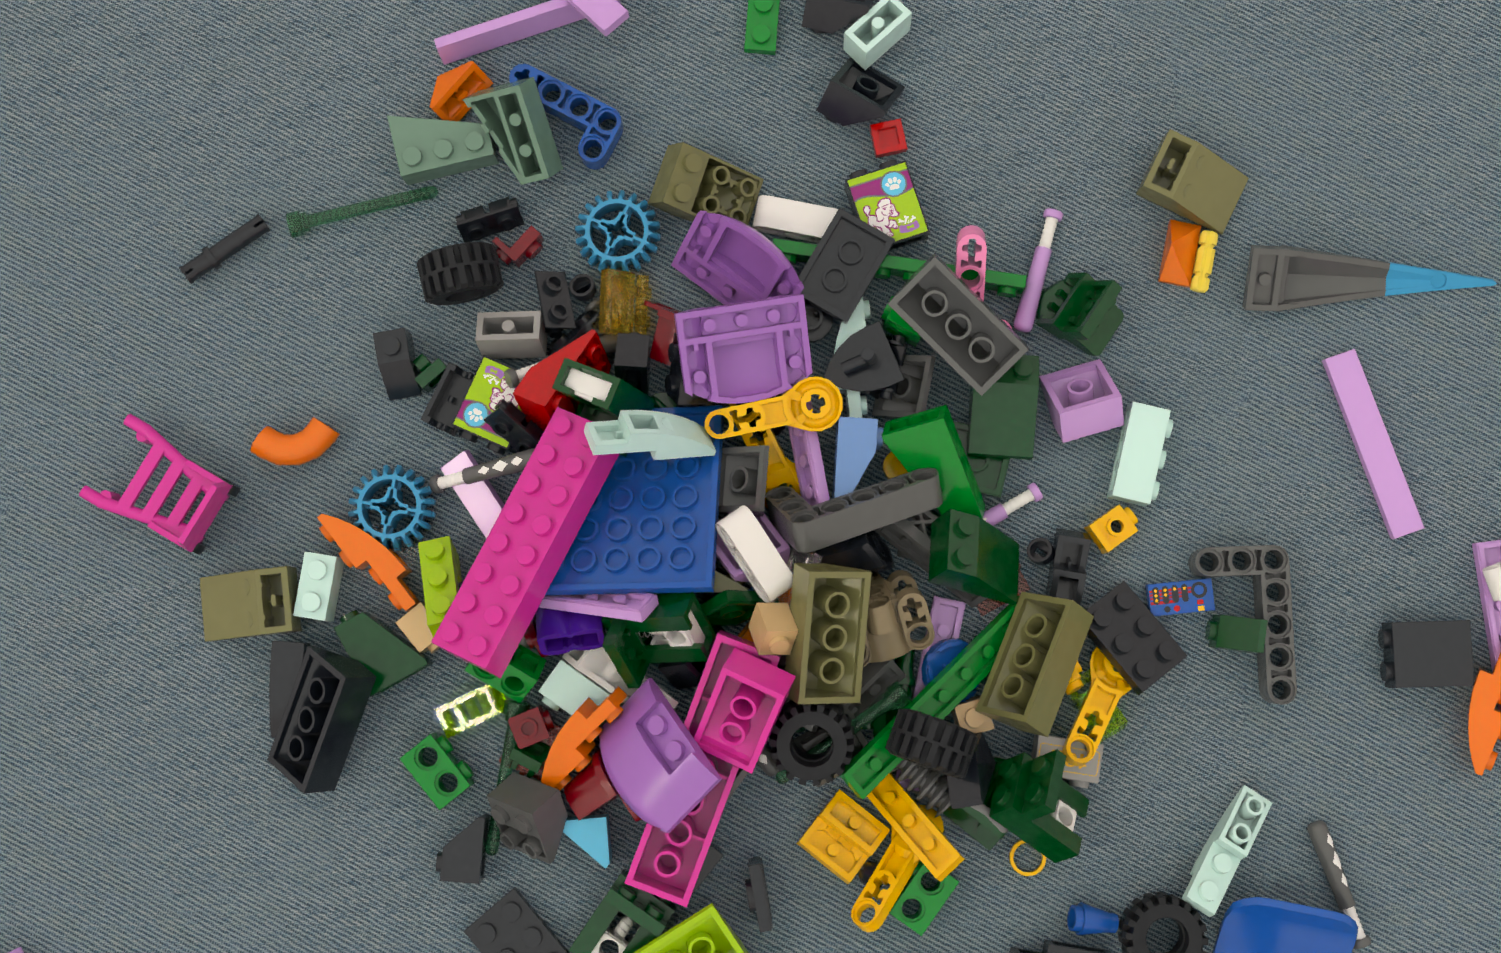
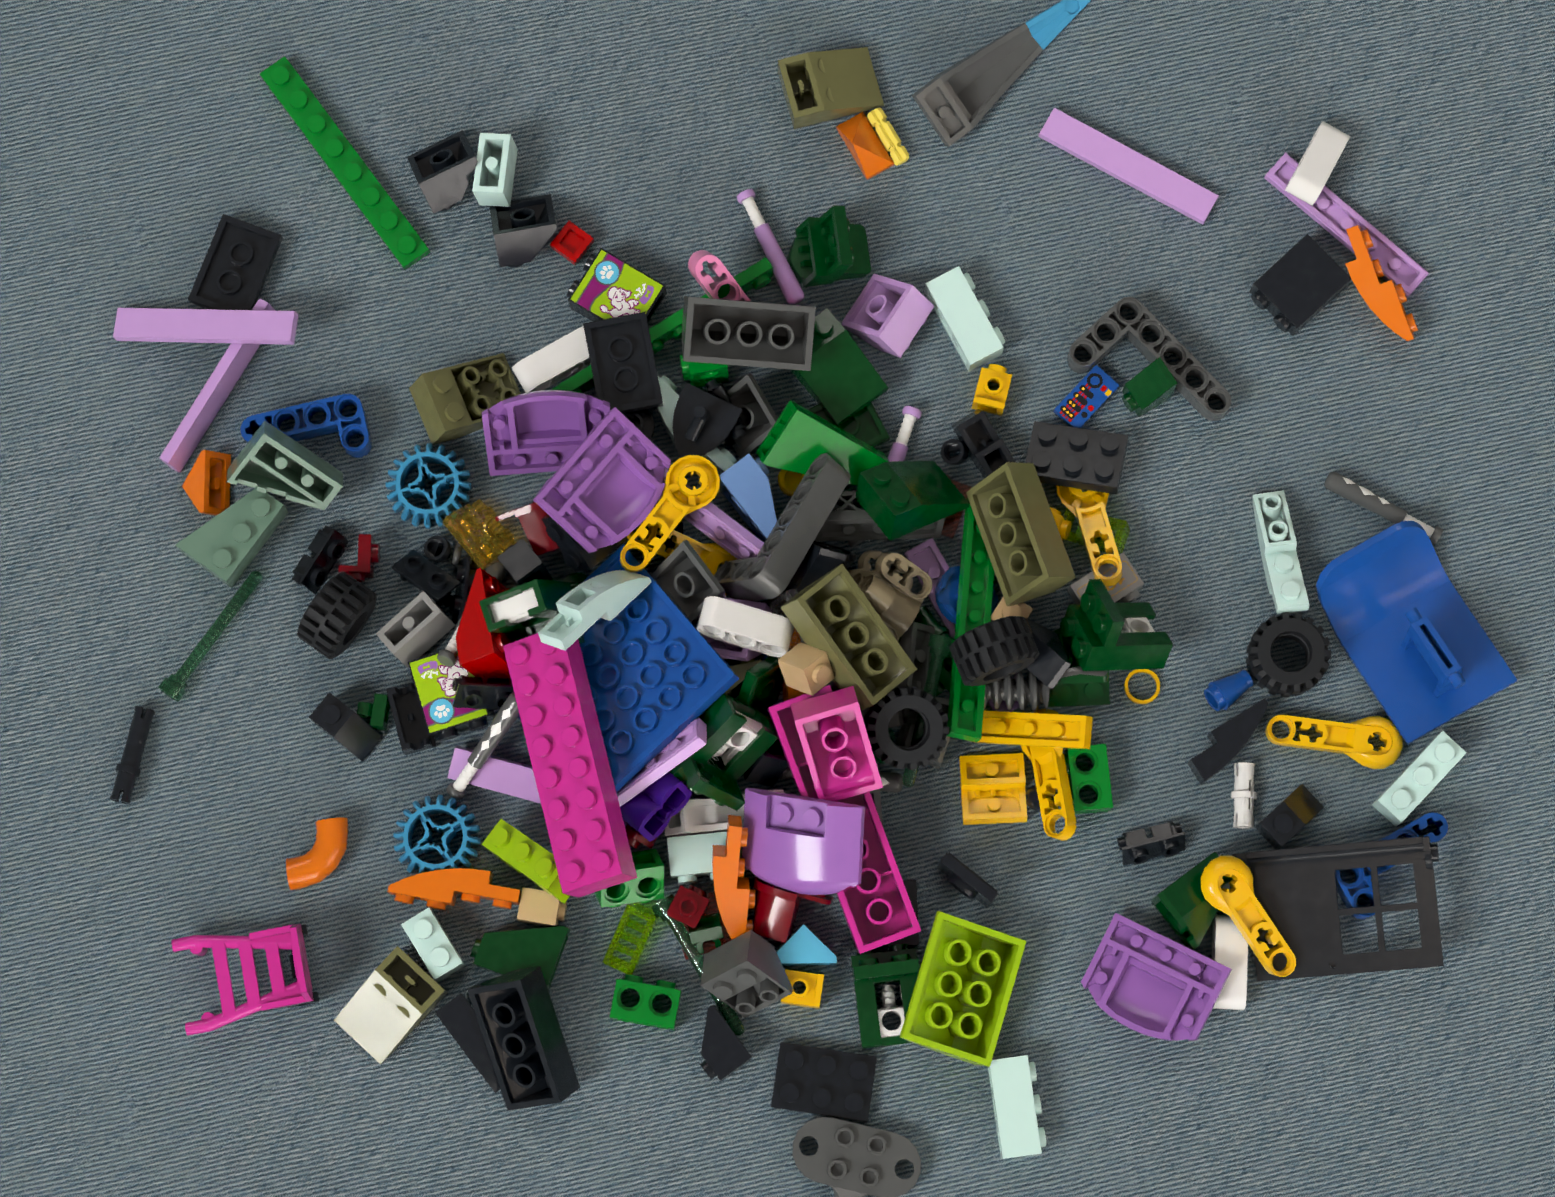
camera: 45 degrees left, 5 degrees down
(575, 866) = (811, 996): none -> yellow brick

